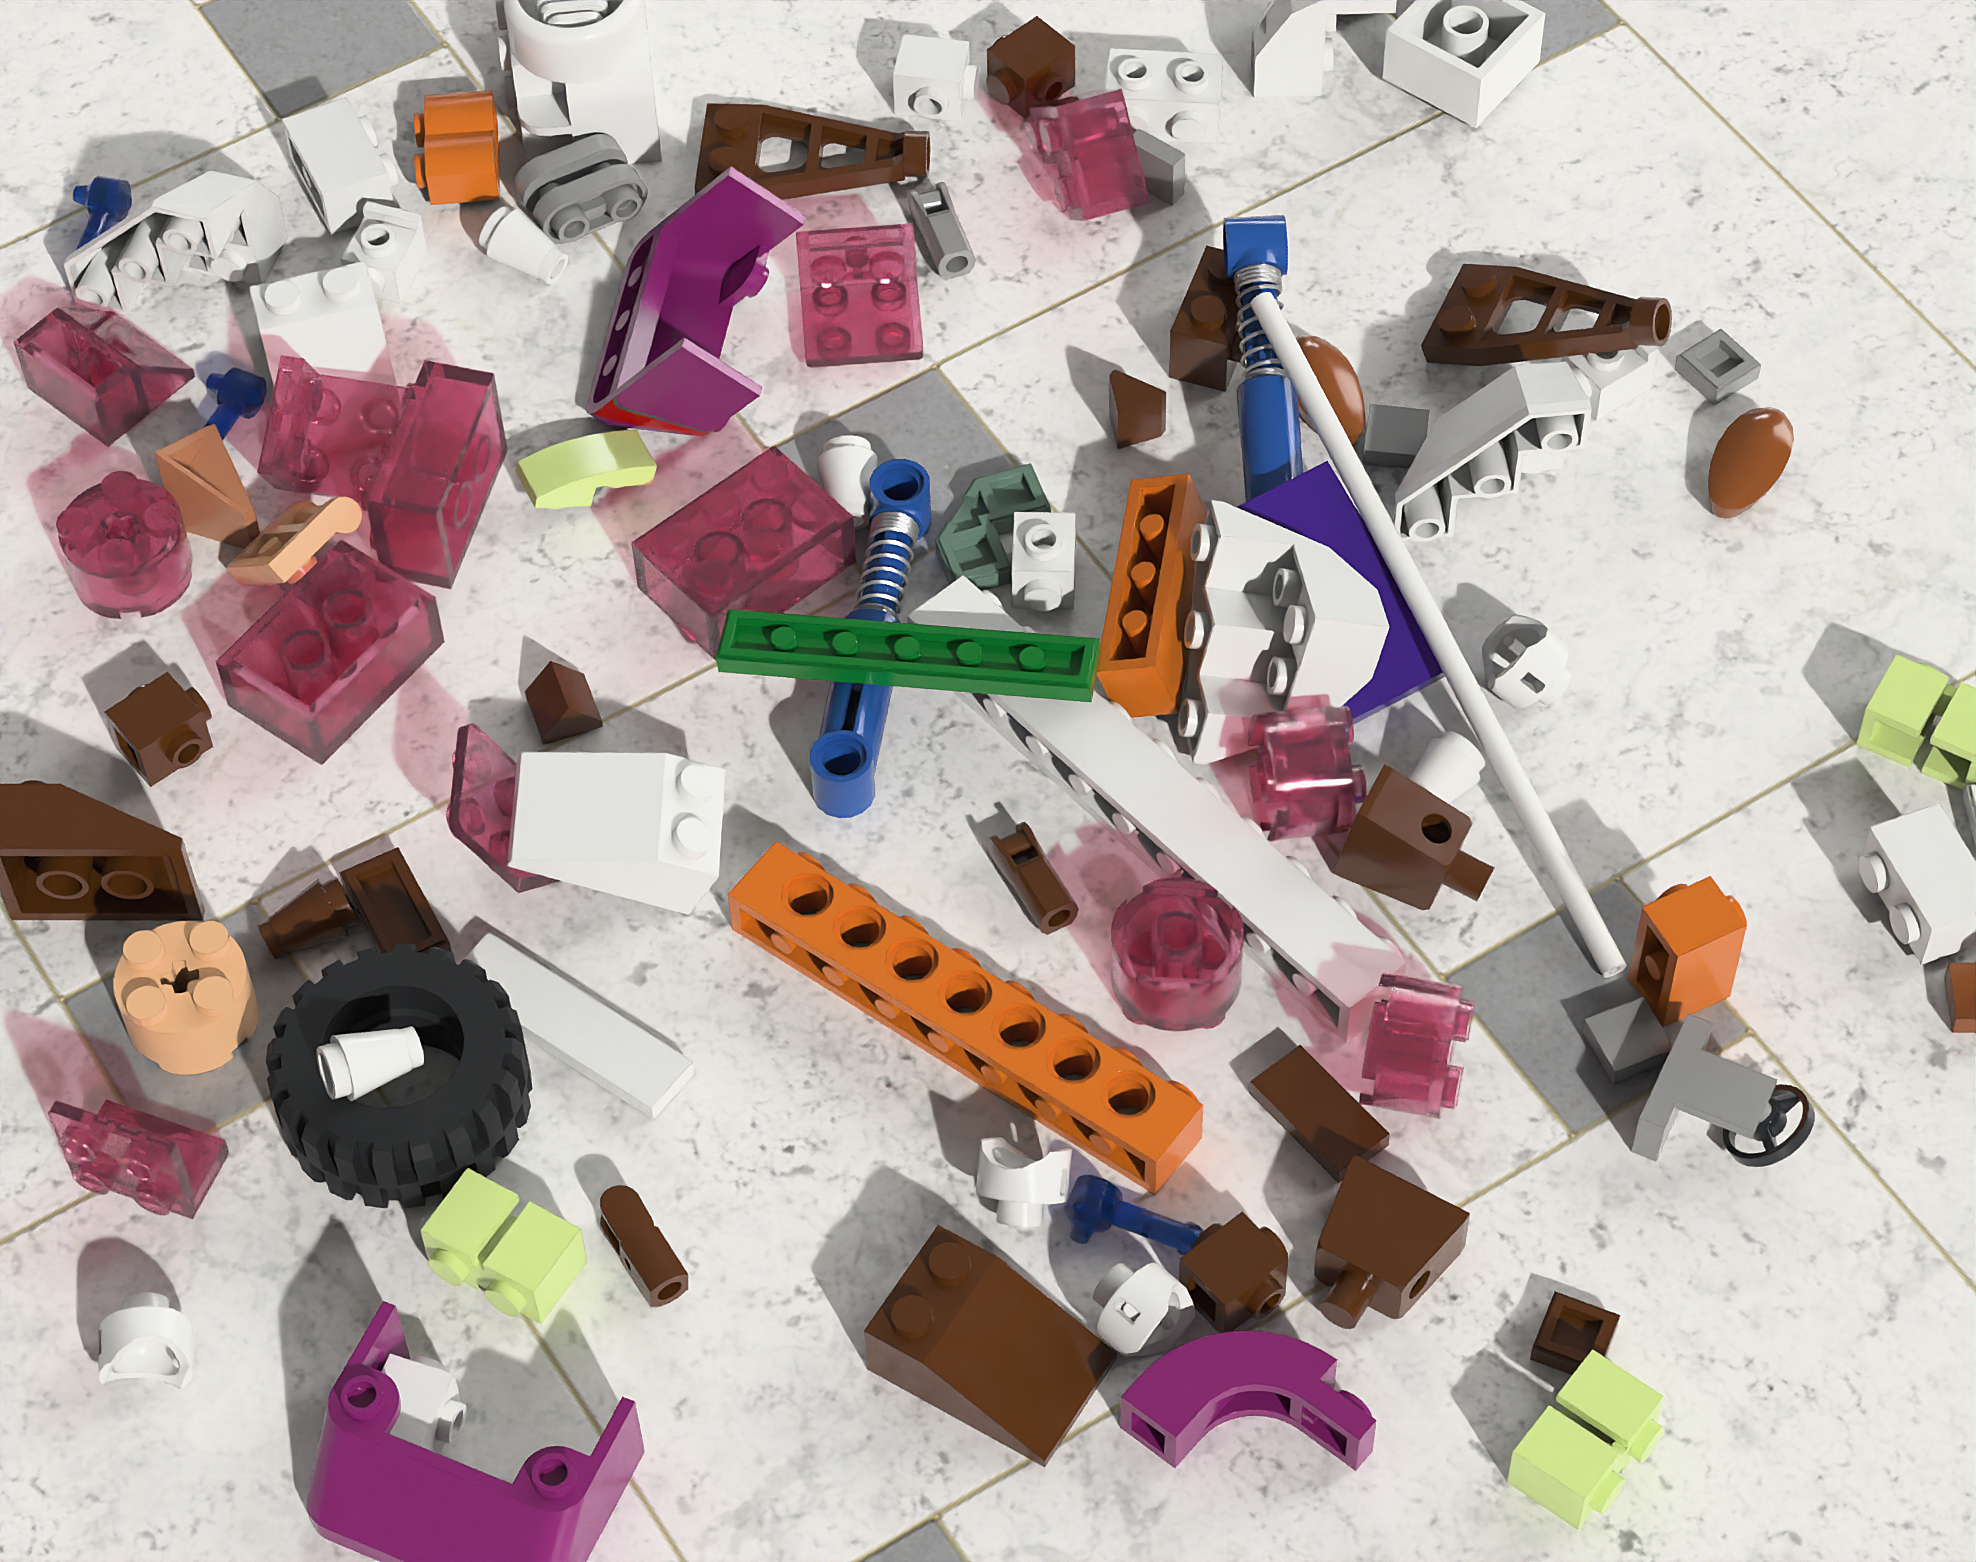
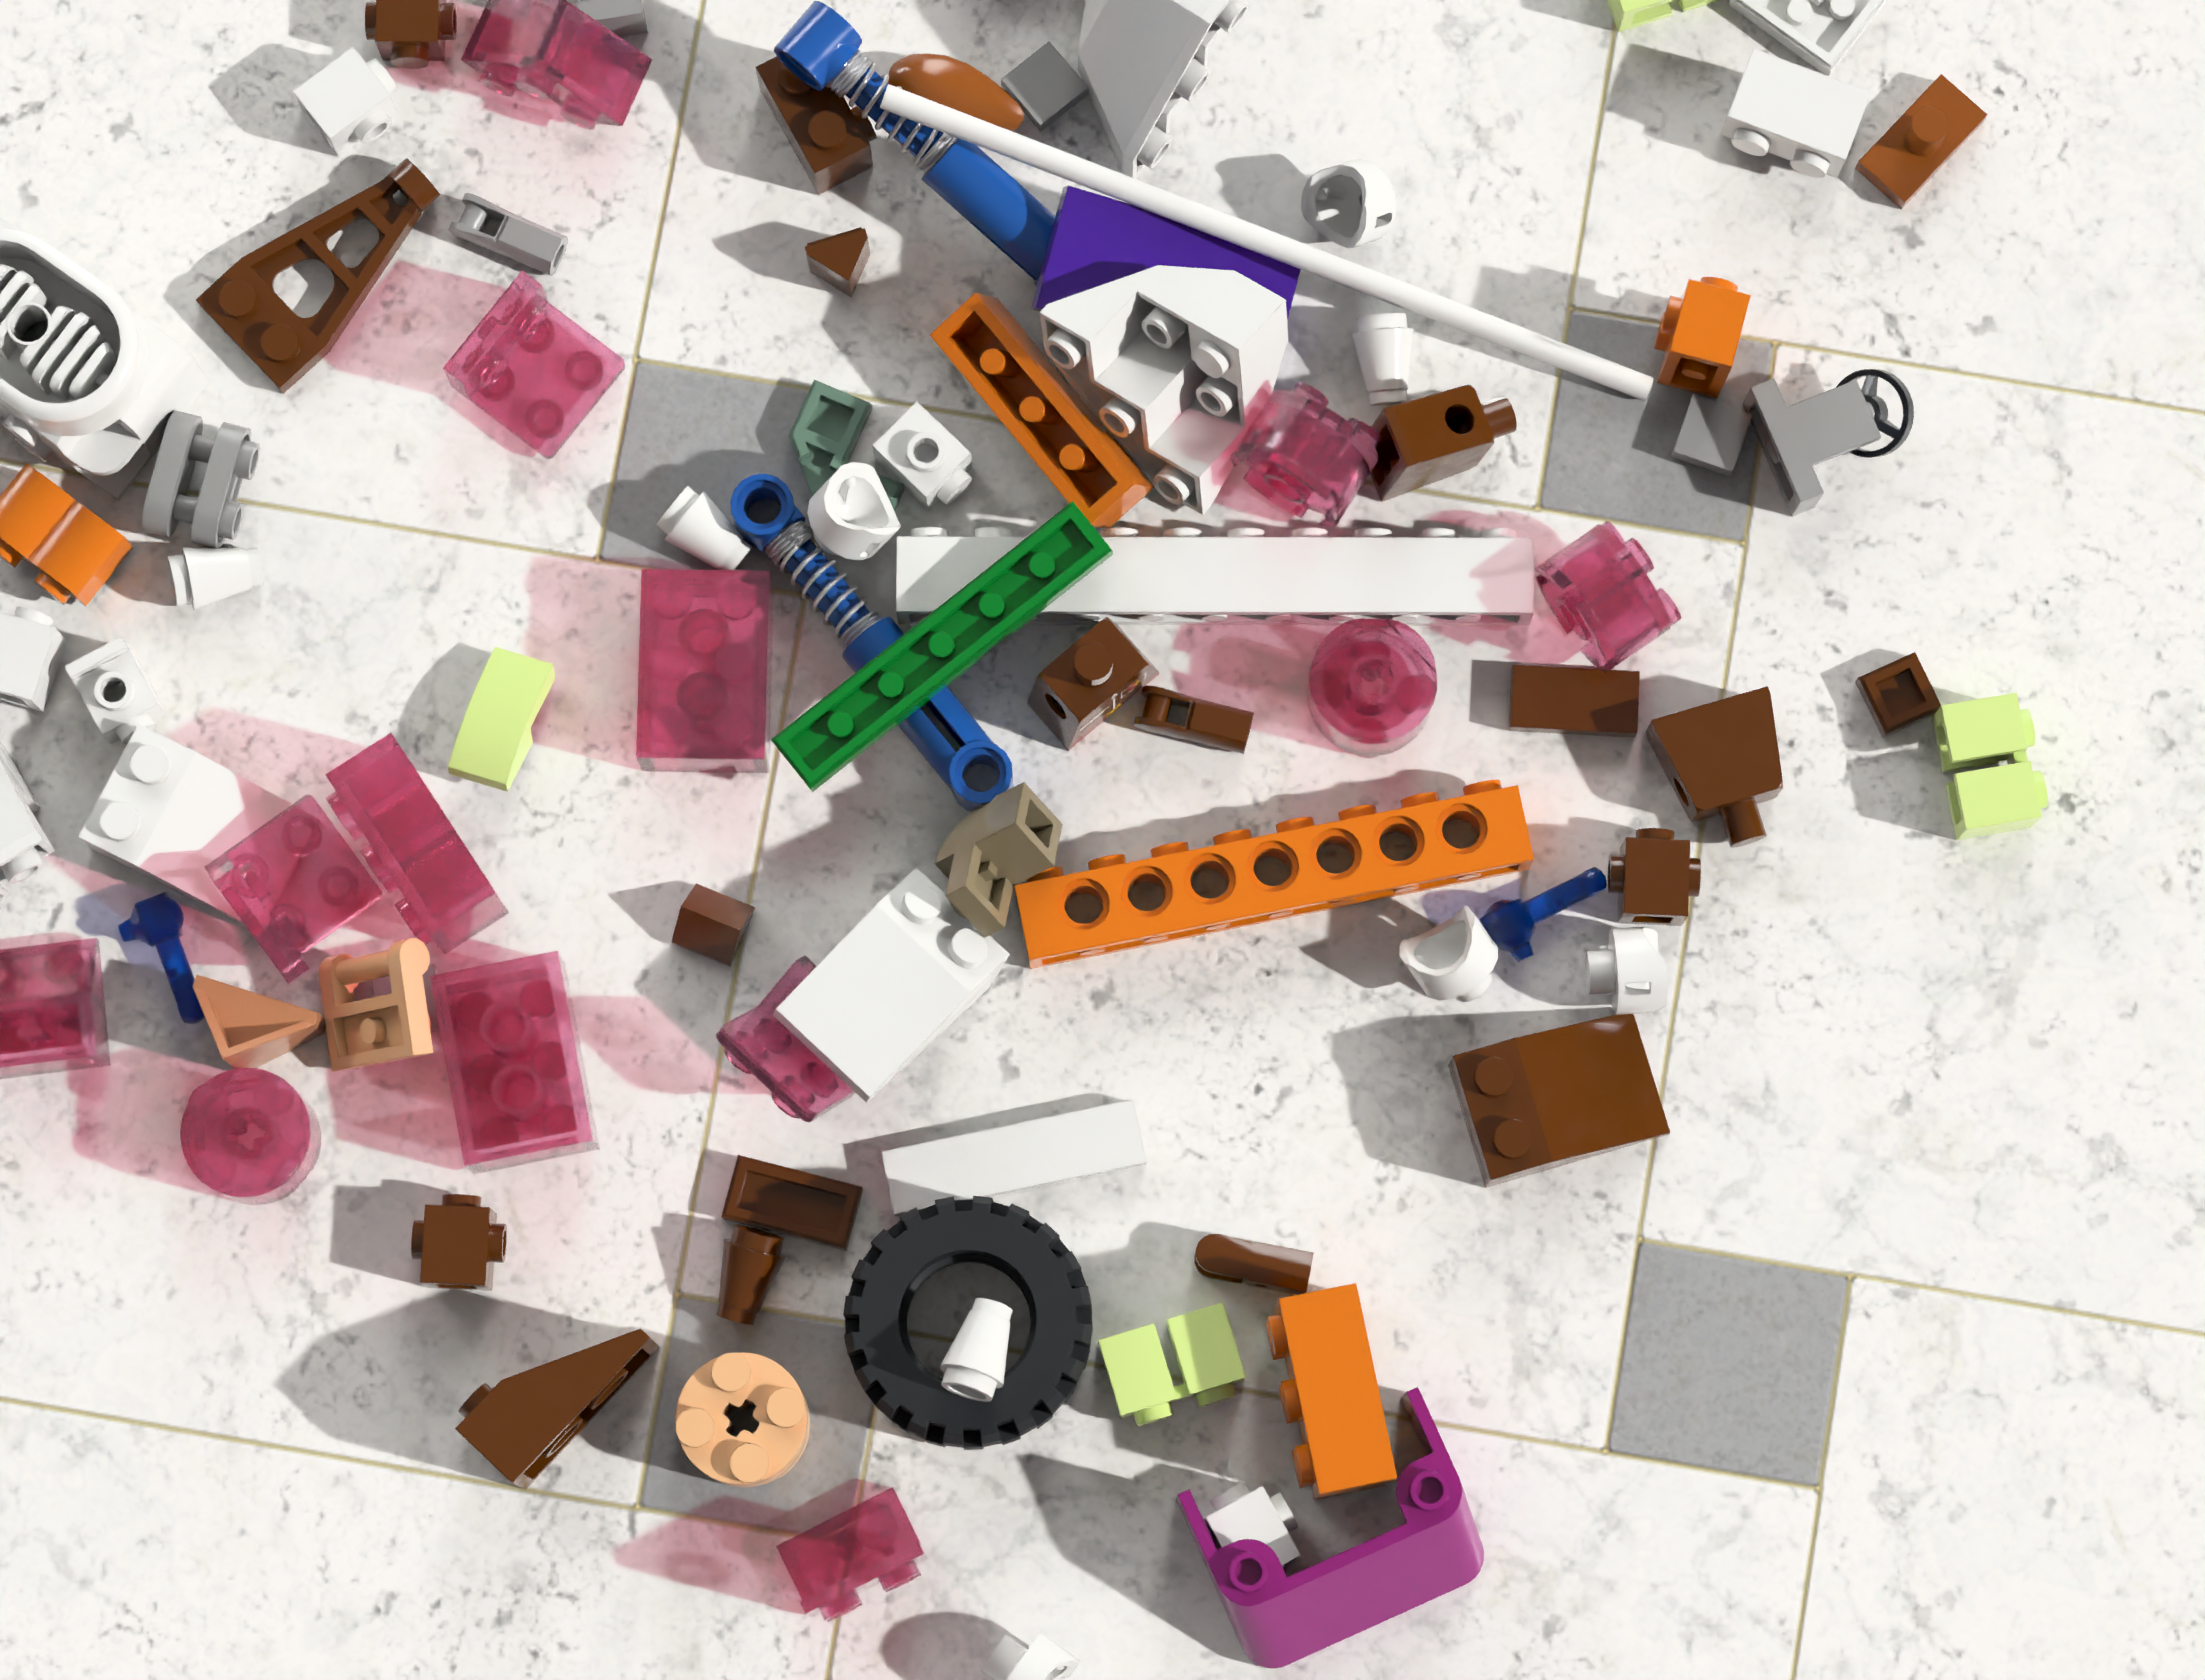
camera: 50 degrees left, 25 degrees up
(579, 1355) = (1331, 1392): none -> orange brick
(675, 309) = (412, 533): magenta windscreen -> none
(784, 810) = (995, 851): none -> dark tan brick
(946, 543) = (852, 513): none -> white piece
(990, 776) = (1089, 682): none -> reddish brown torso
(1242, 1377) = (1717, 982): magenta arch -> none

